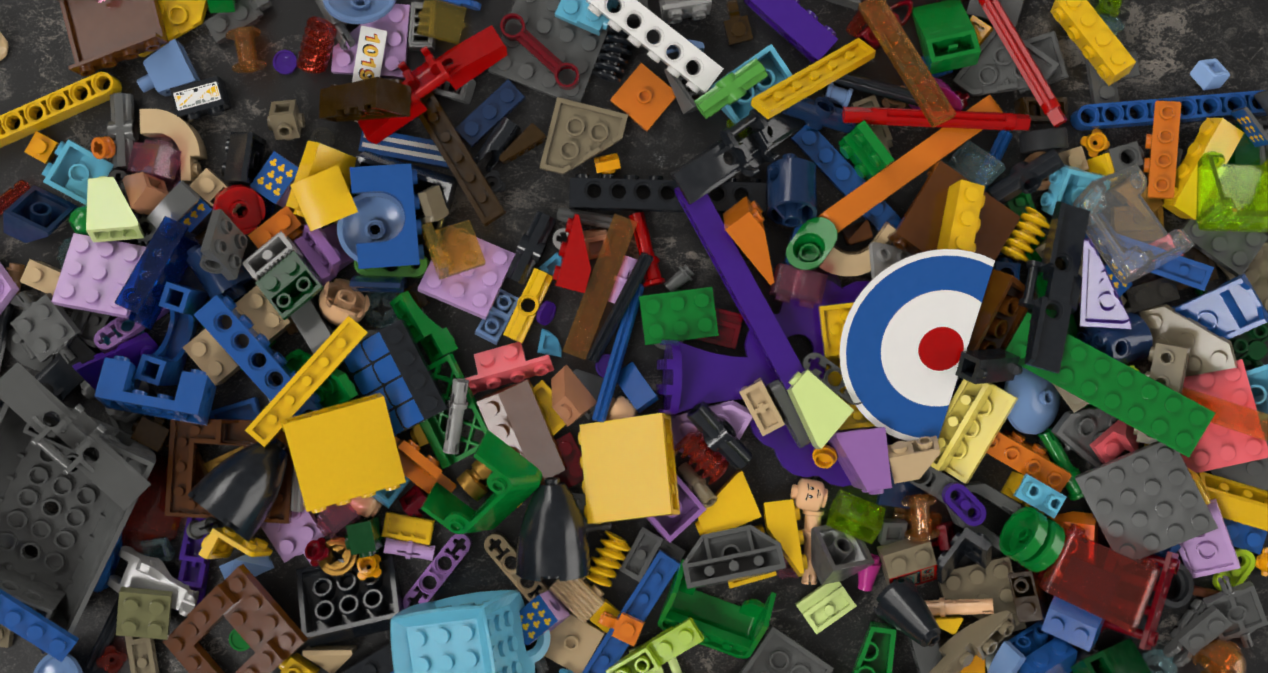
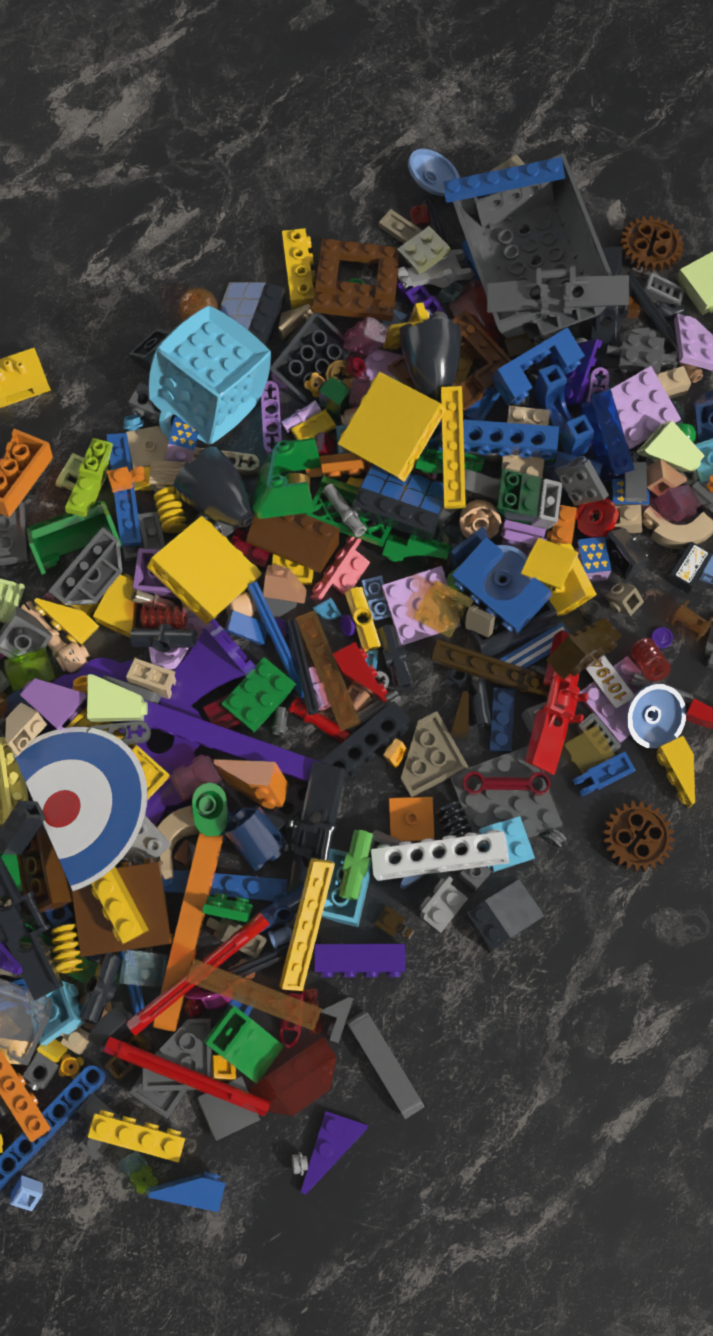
camera: 130 degrees right, 15 degrees down
(281, 571) = (365, 337): none -> clear pink brick

